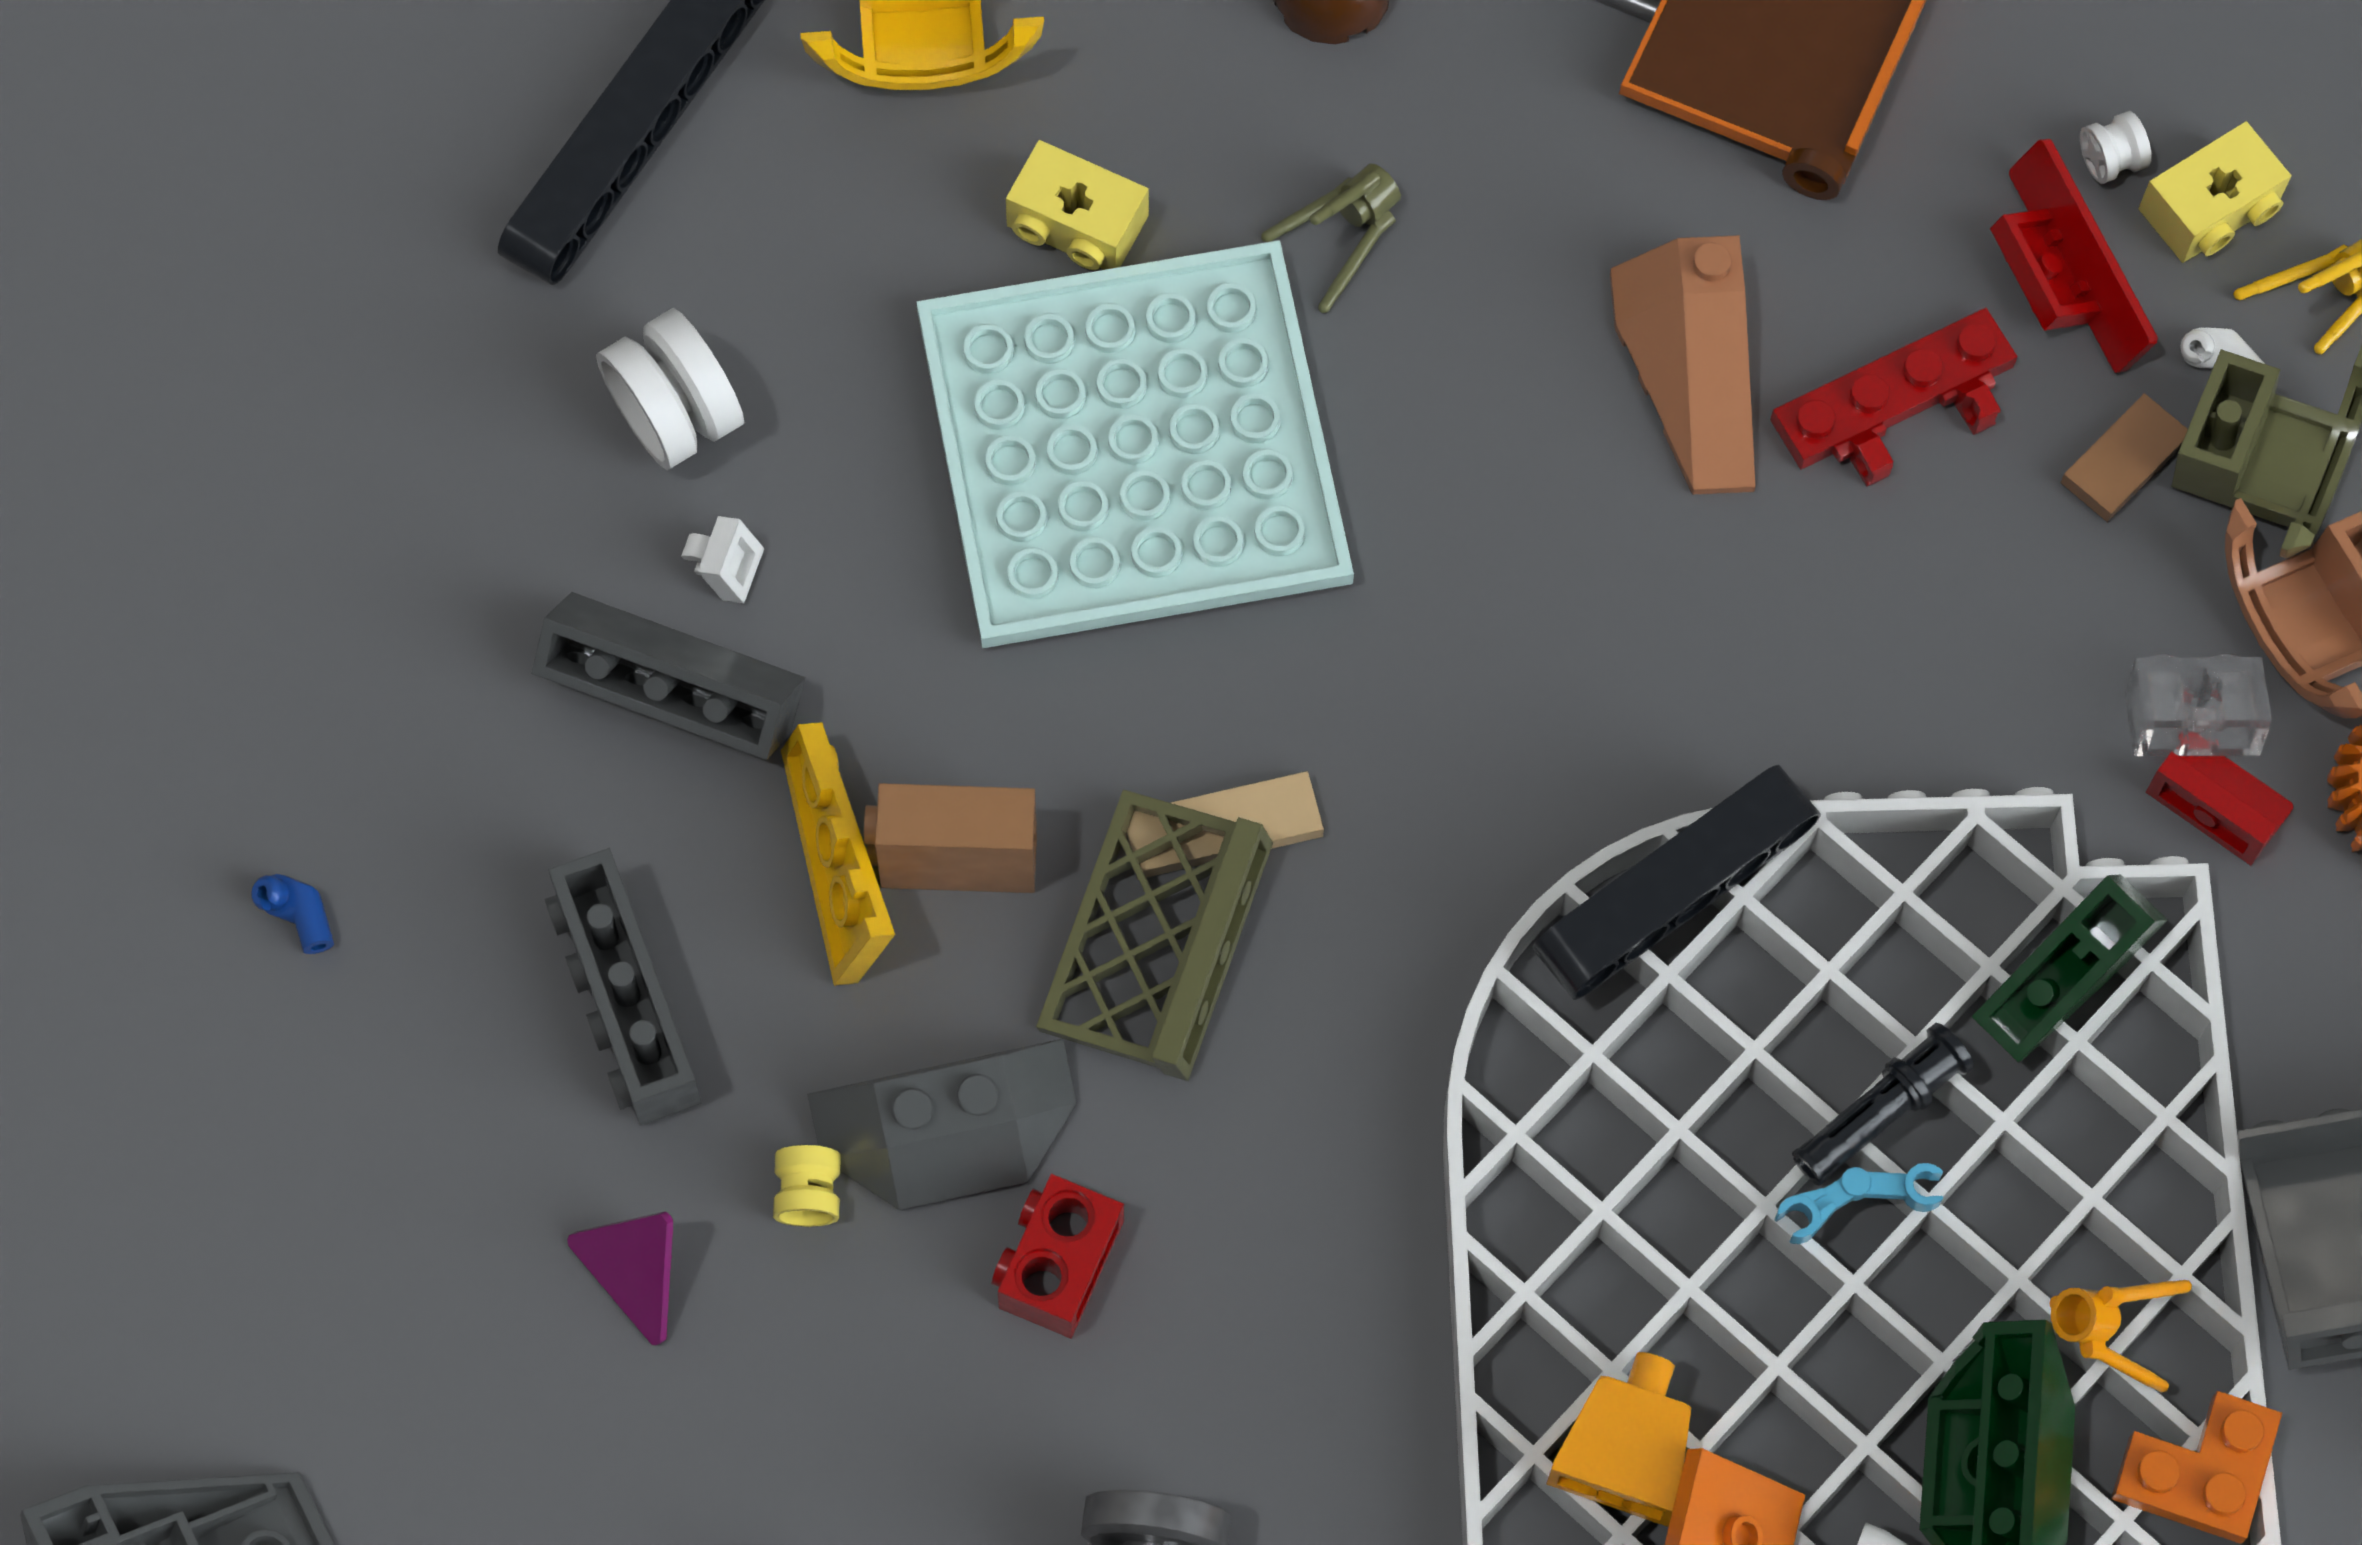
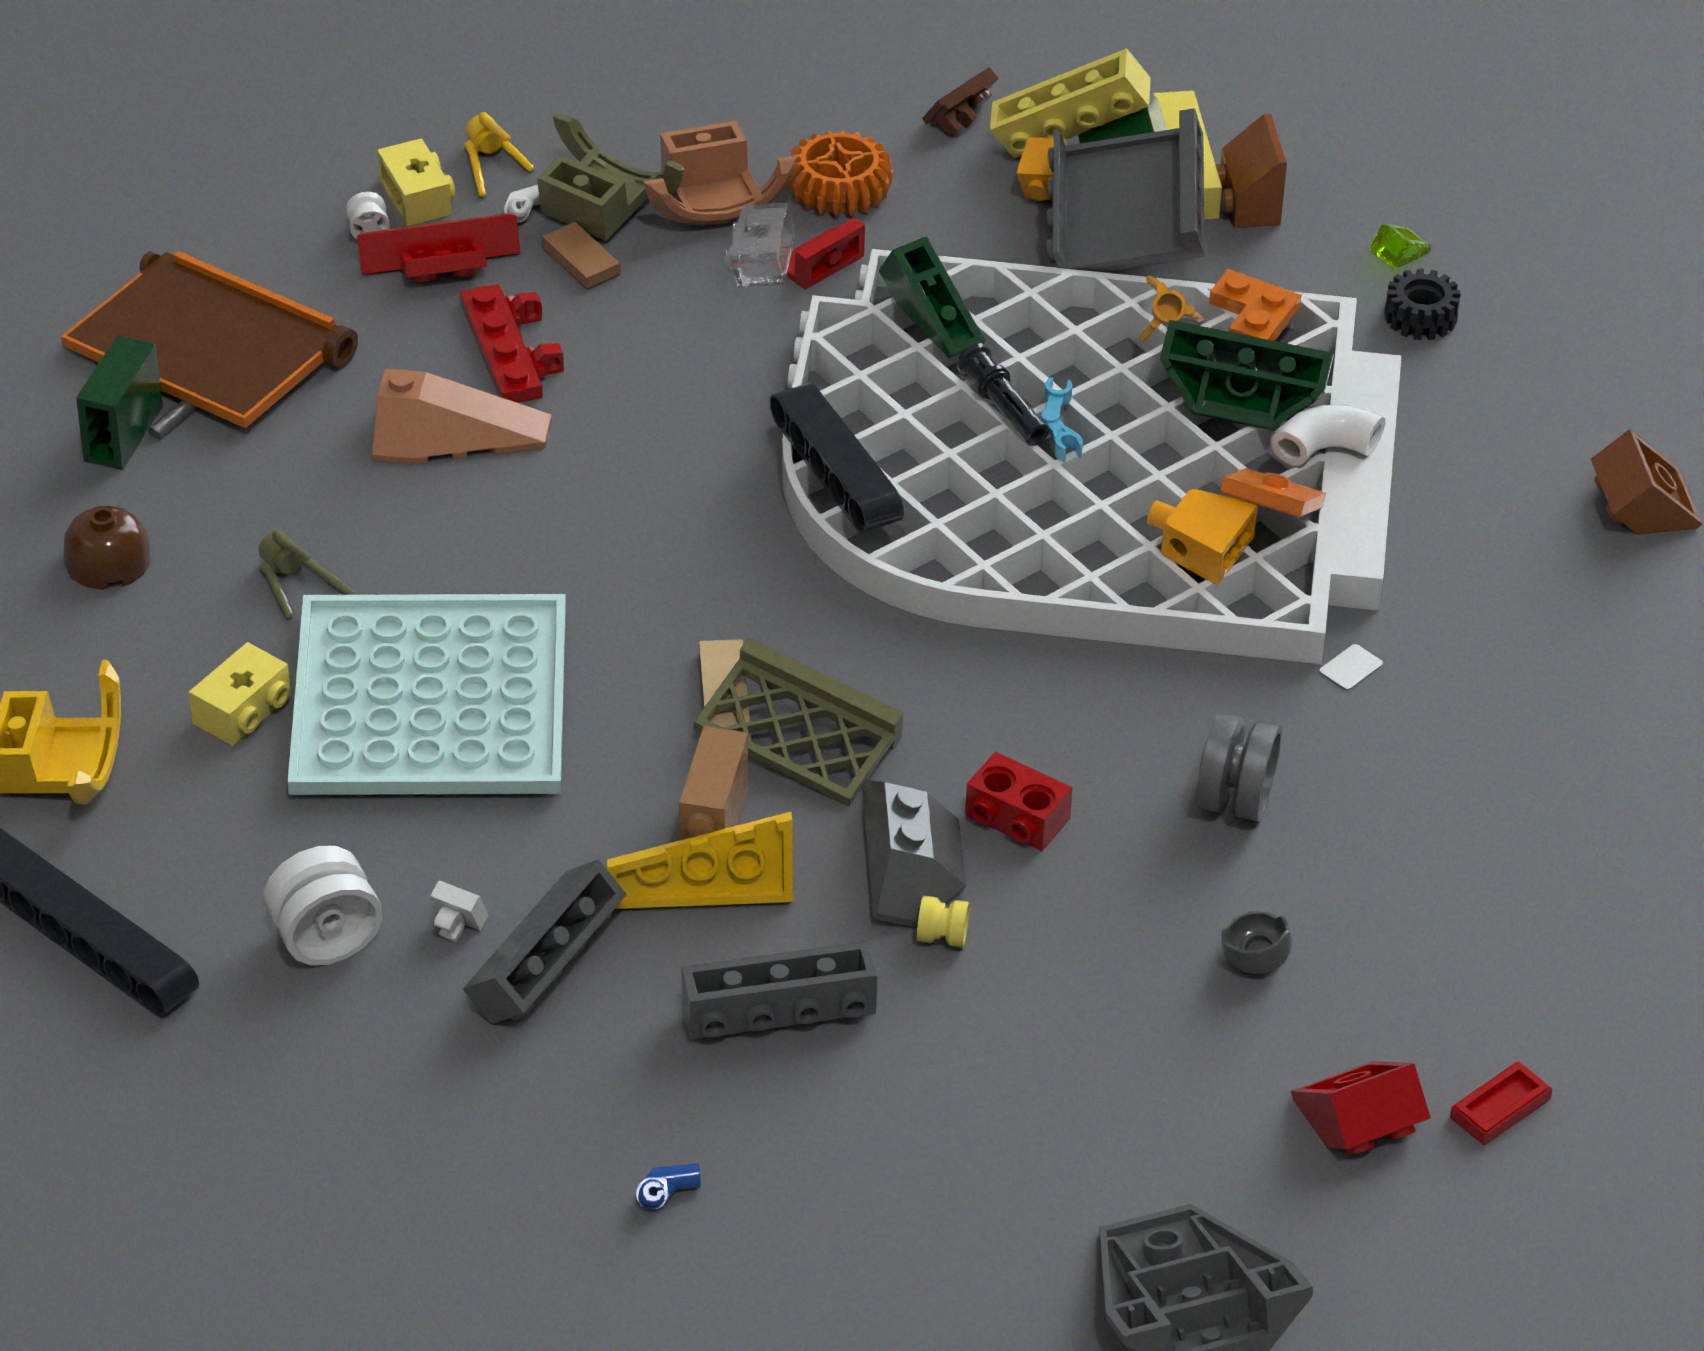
camera: 80 degrees left, 25 degrees down
(633, 1267) = (984, 1016): magenta piece -> none

